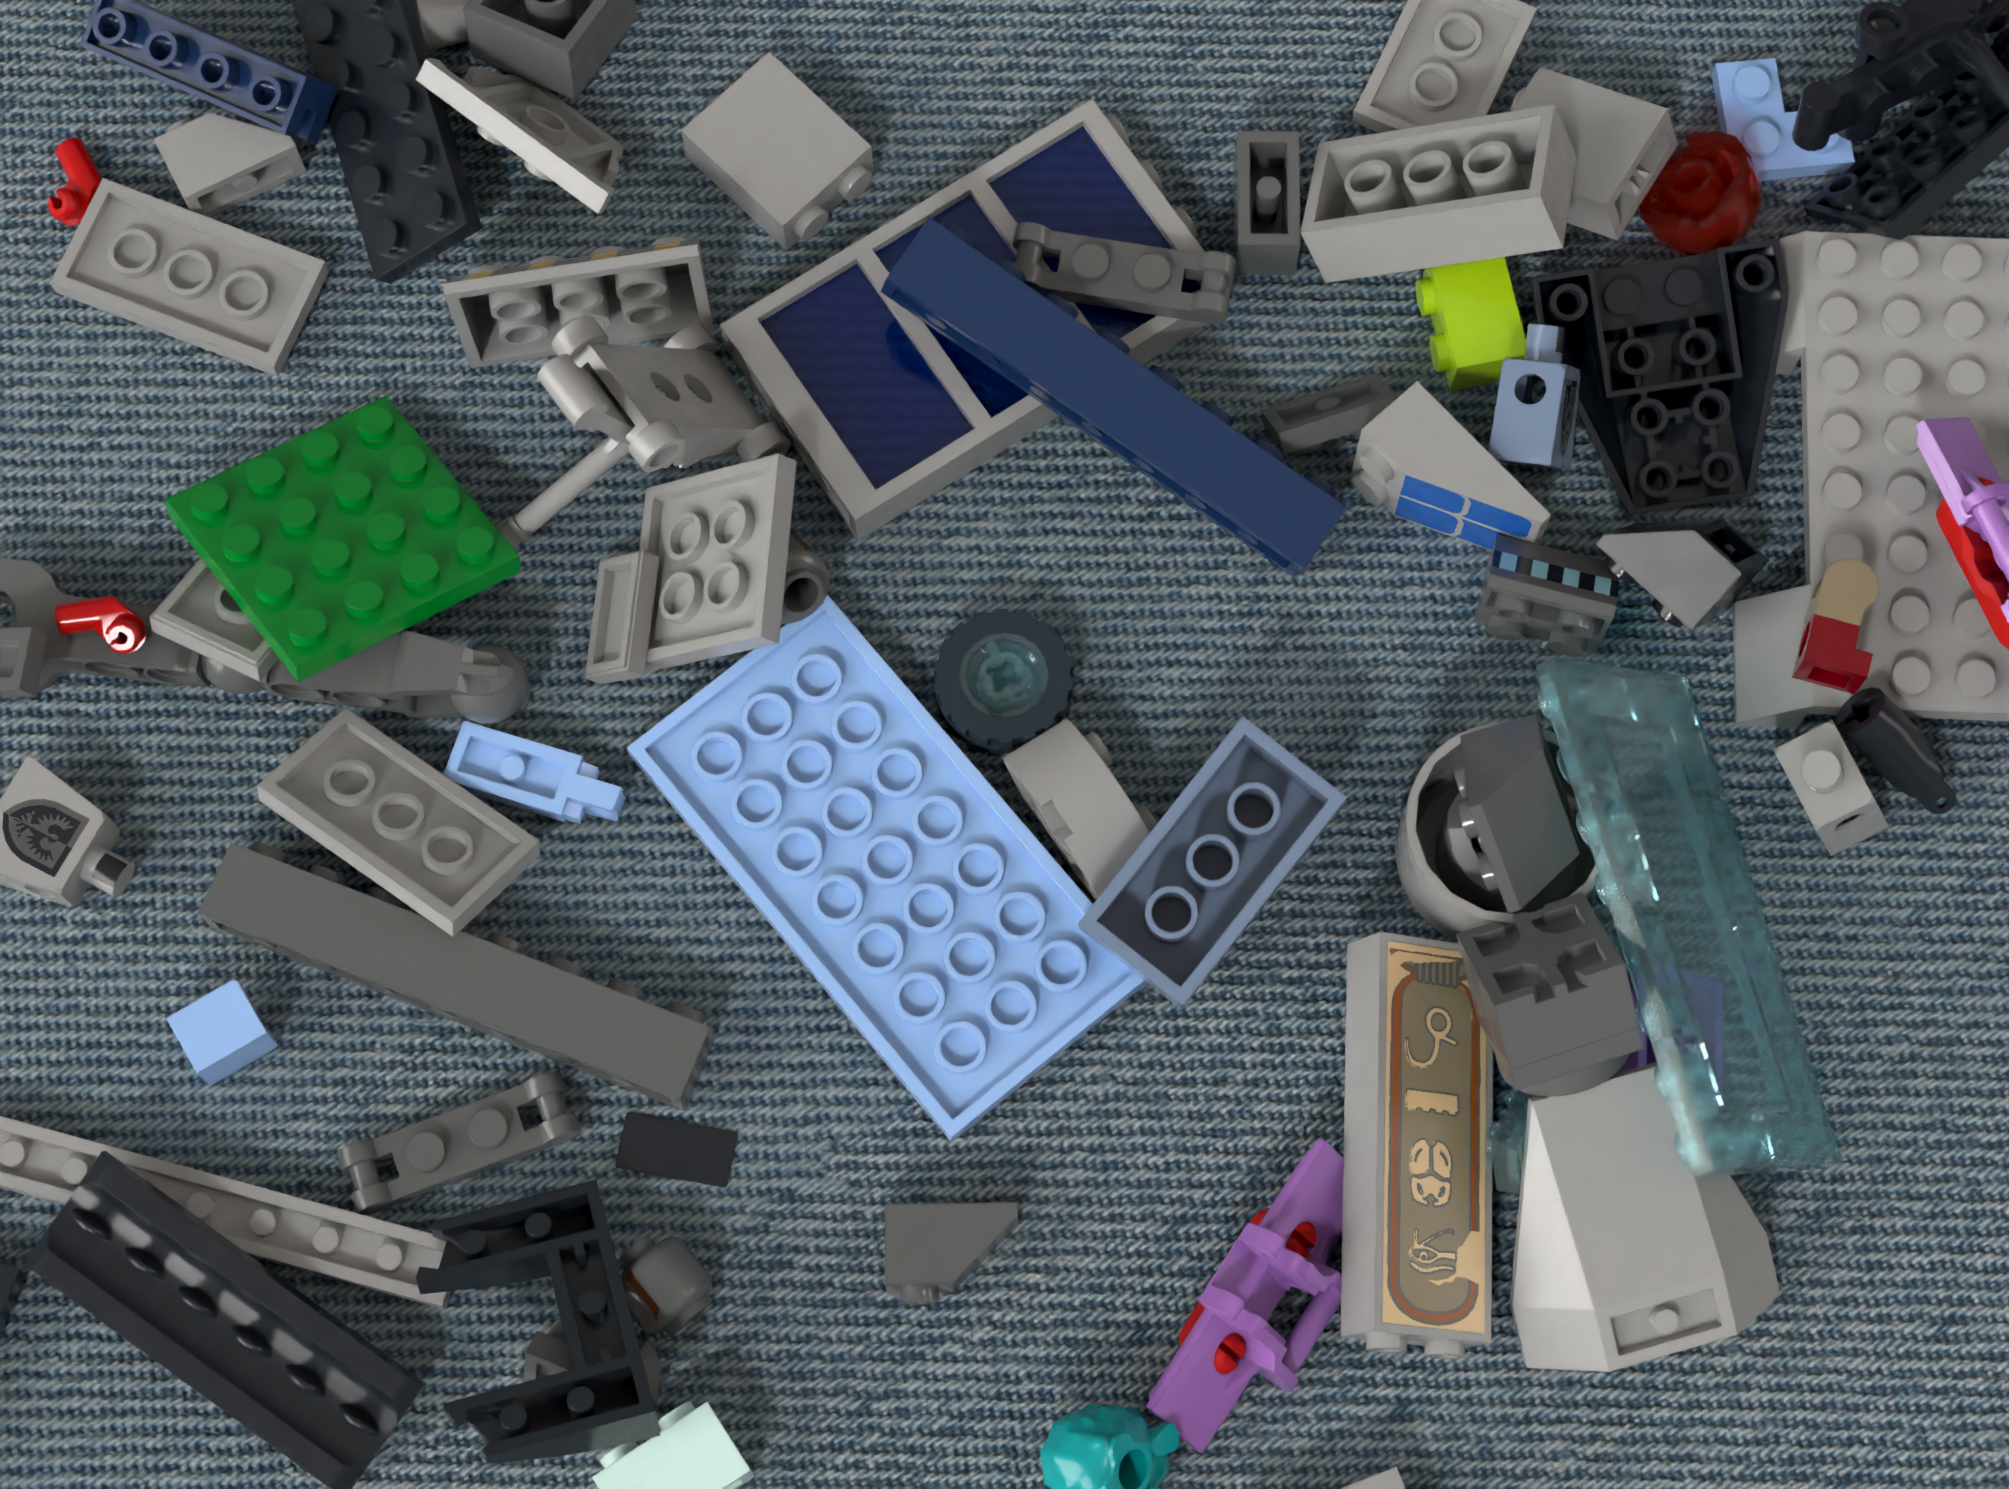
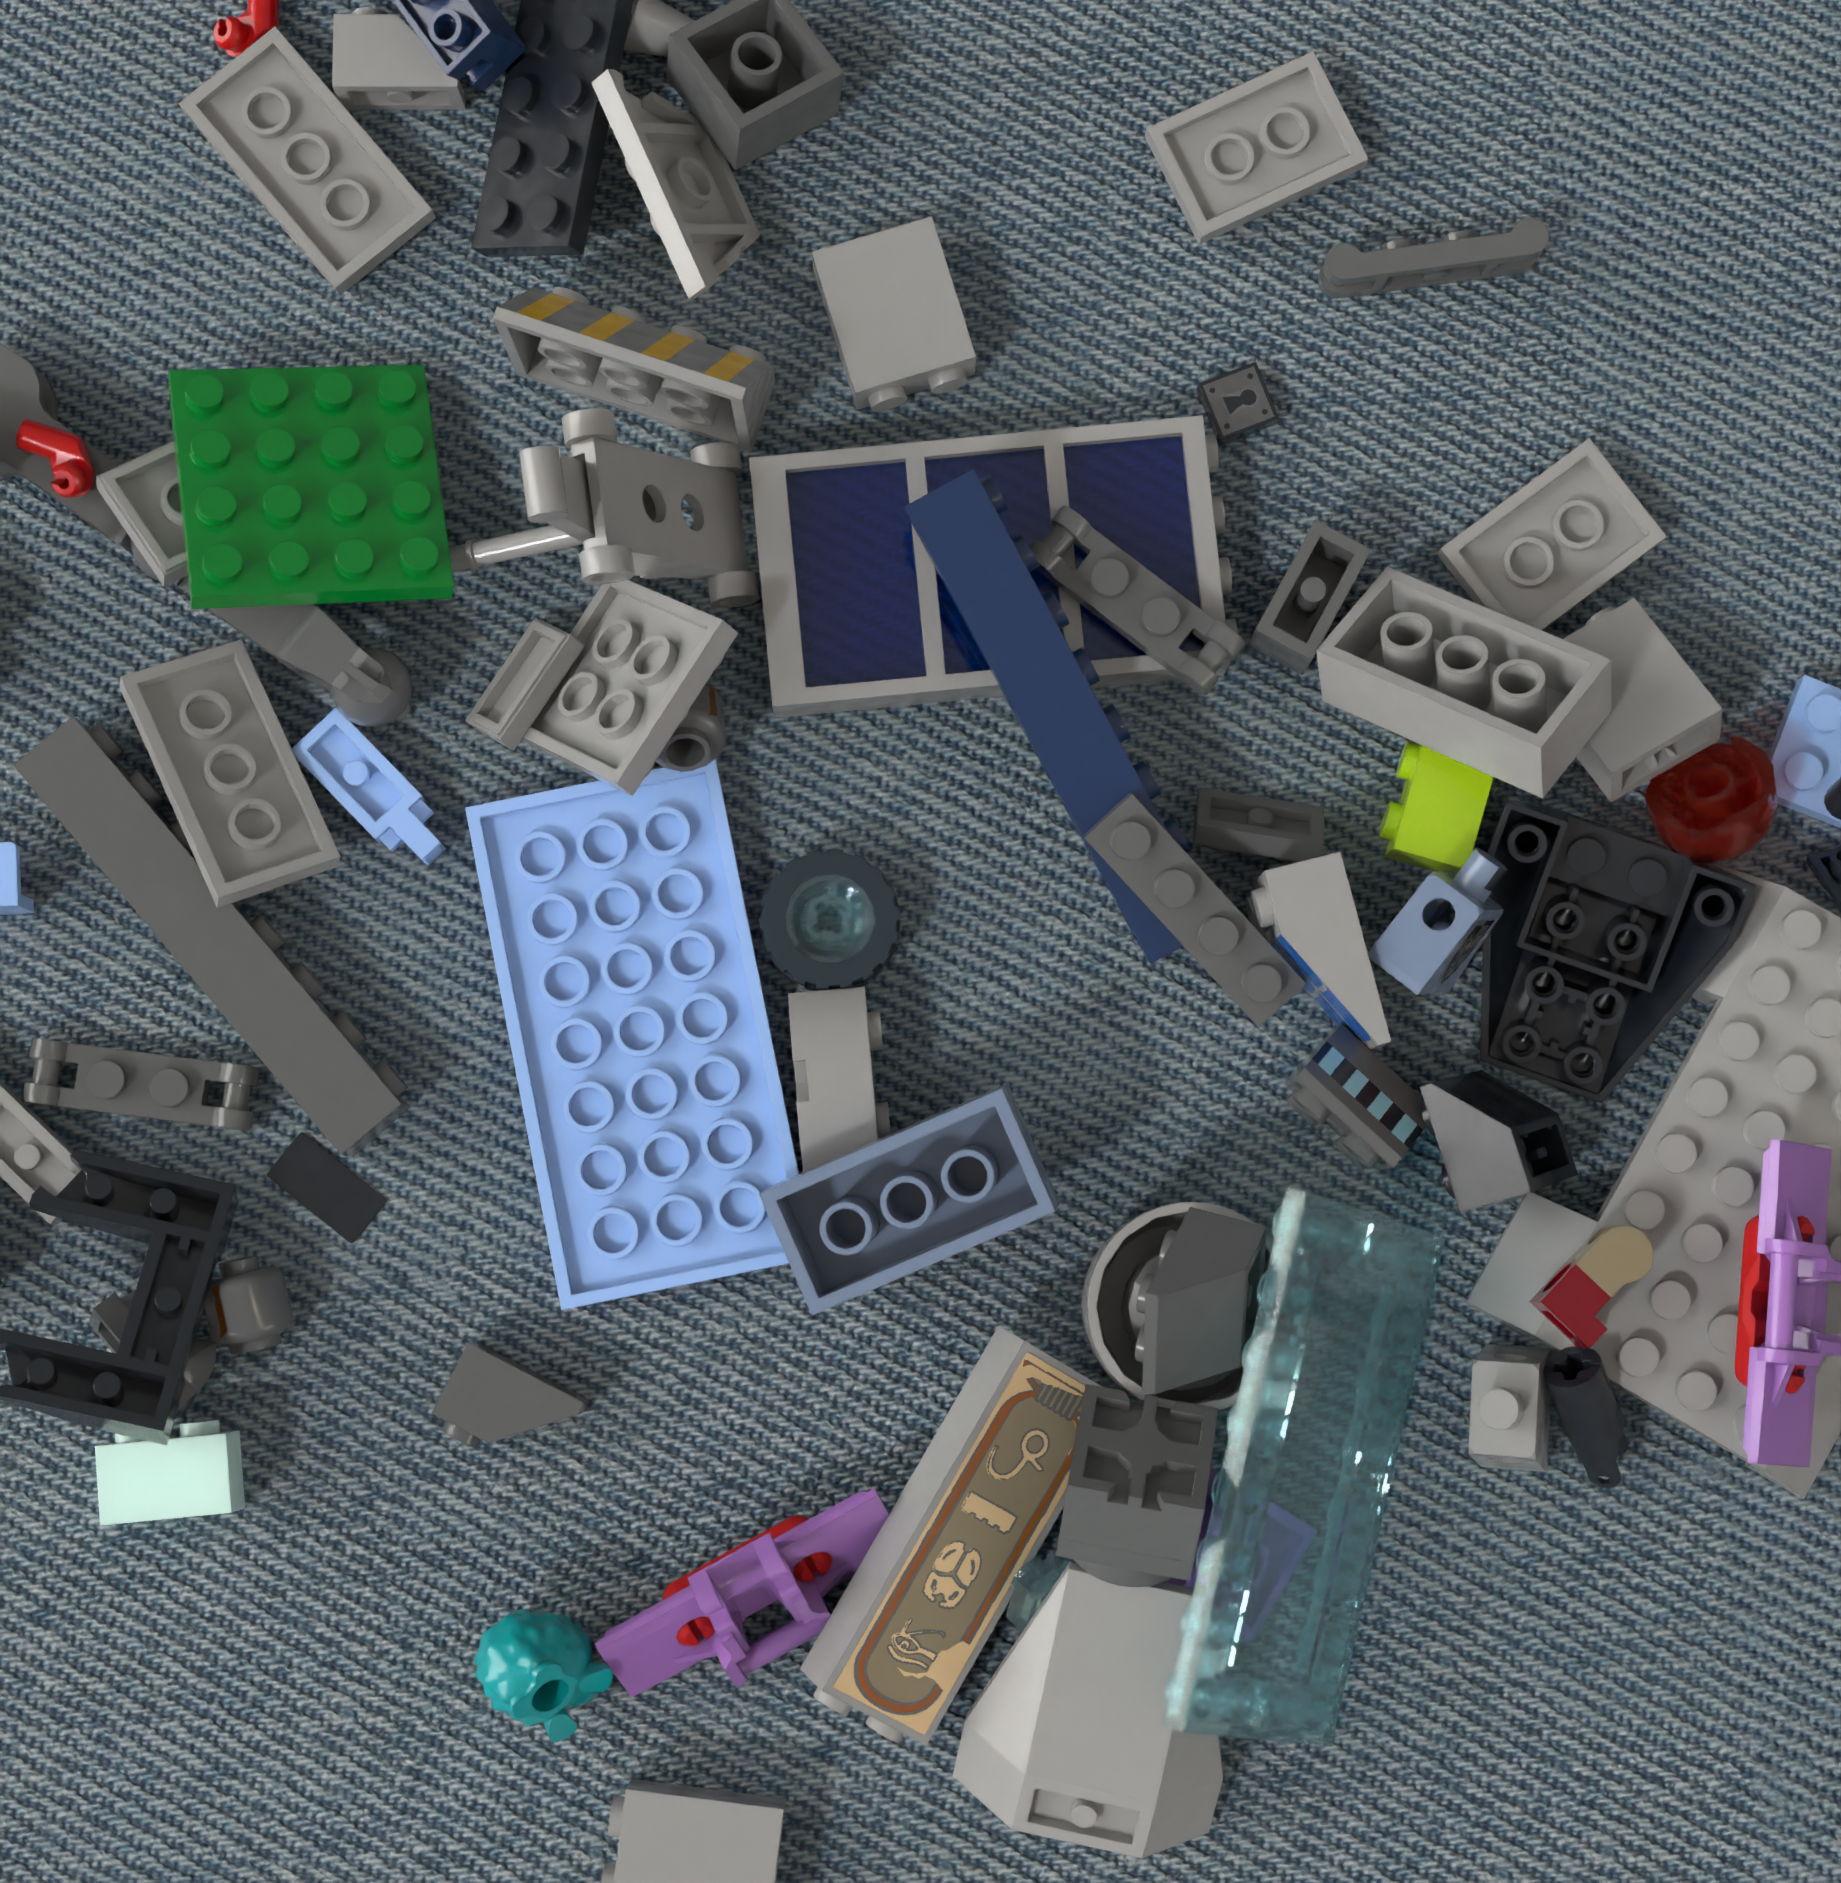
camera: 25 degrees right, 10 degrees up
(1113, 81) = (1237, 403): none -> tile
(1318, 500) = (1194, 909): none -> dark grey plate

